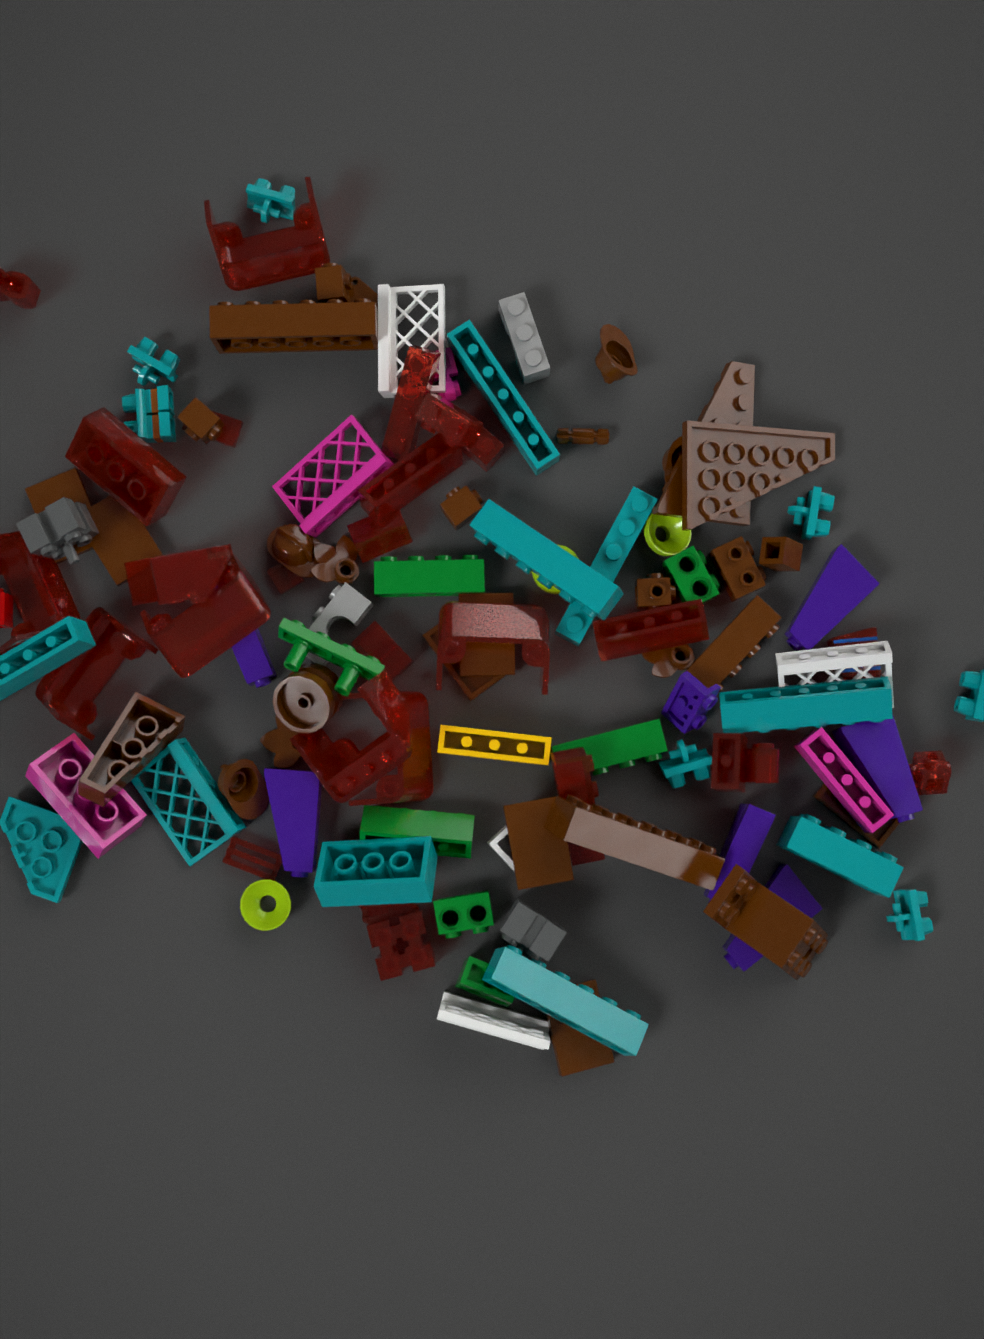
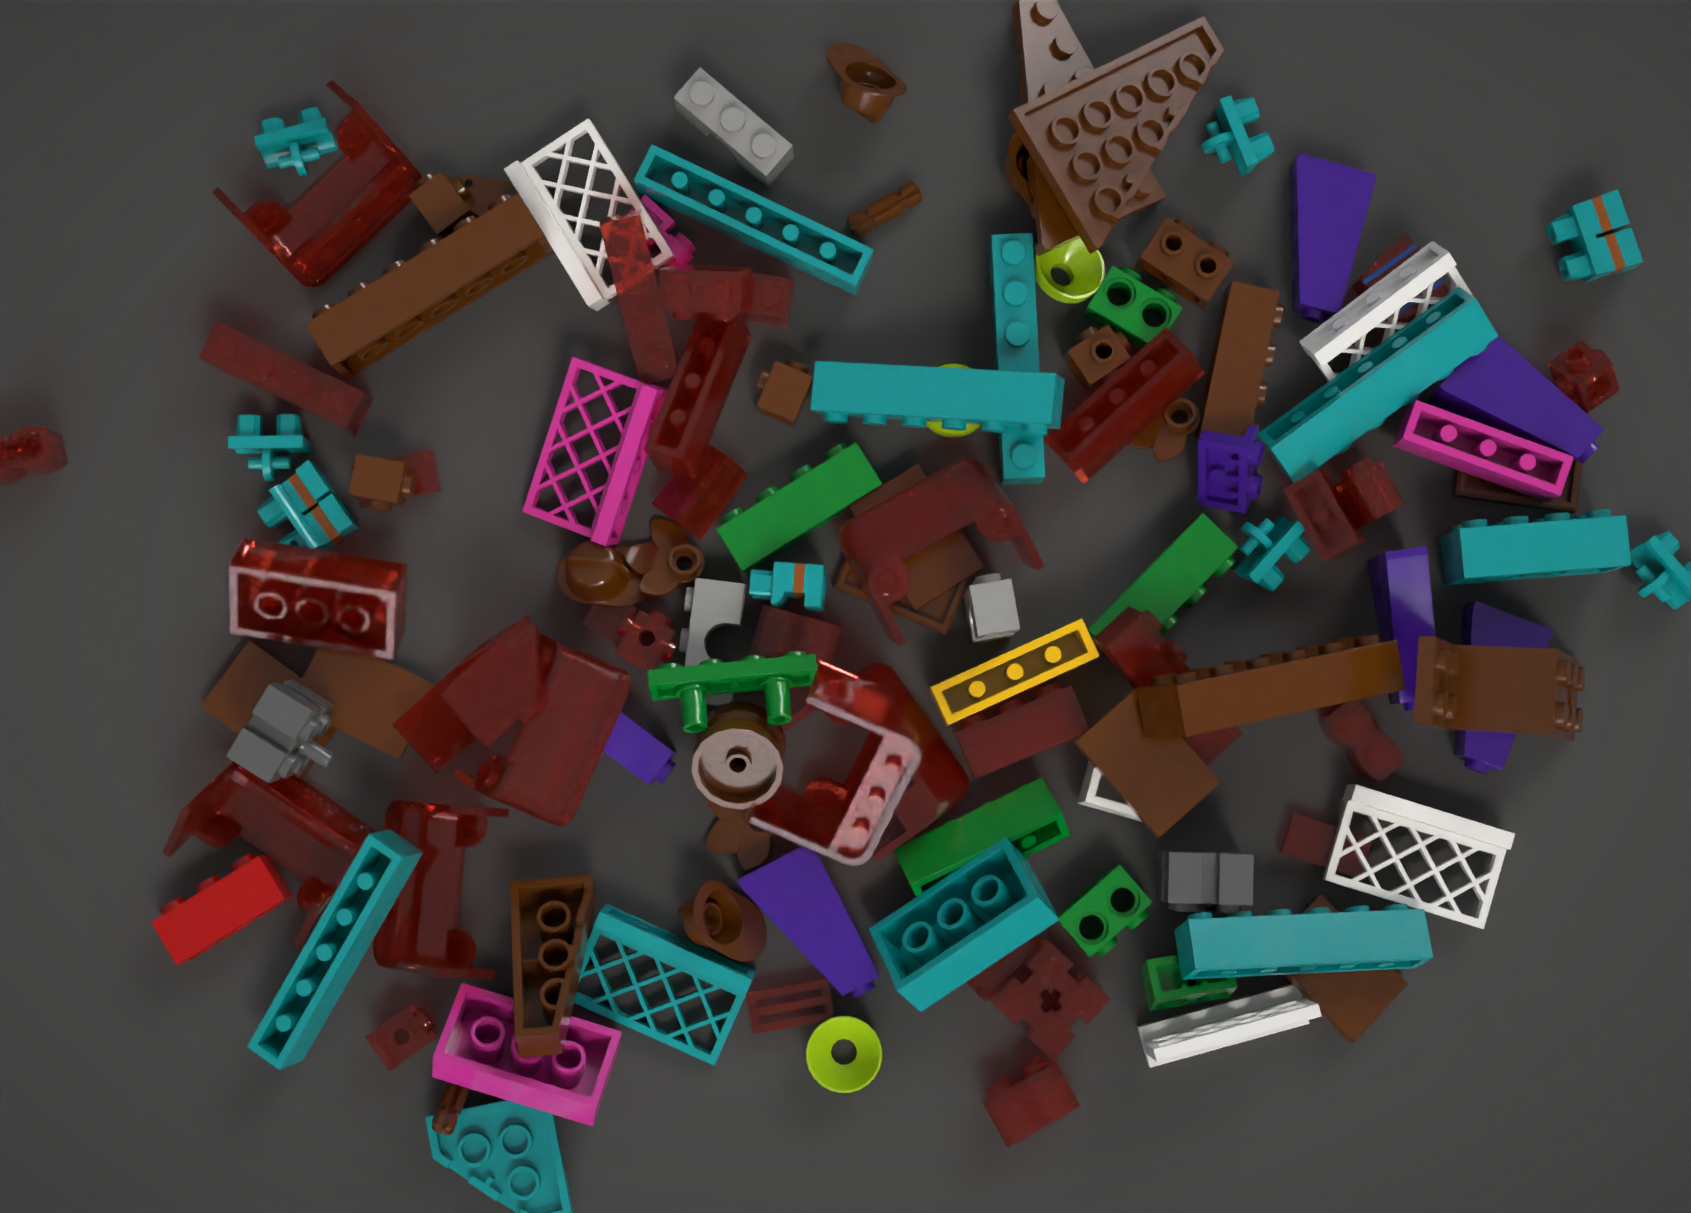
camera: 35 degrees left, 0 degrees up
(12, 743) = (387, 1046): none -> clear red brick
(25, 799) = (449, 1109): none -> reddish brown axle
(184, 332) = (286, 378): none -> clear red brick
(287, 598) = (632, 632): none -> clear red brick
(355, 996) = (1029, 1101): none -> clear red brick
(397, 616) = (792, 582): none -> teal hips
(479, 780) = (1021, 729): none -> clear red brick
(501, 700) = (991, 609): none -> light grey arch
(615, 953) = (1313, 842): none -> clear red tile
(672, 913) = (1366, 749): none -> clear red brick
(686, 981) = (1428, 821): none -> white fence
(780, 554) = (1229, 210): reddish brown brick -> none

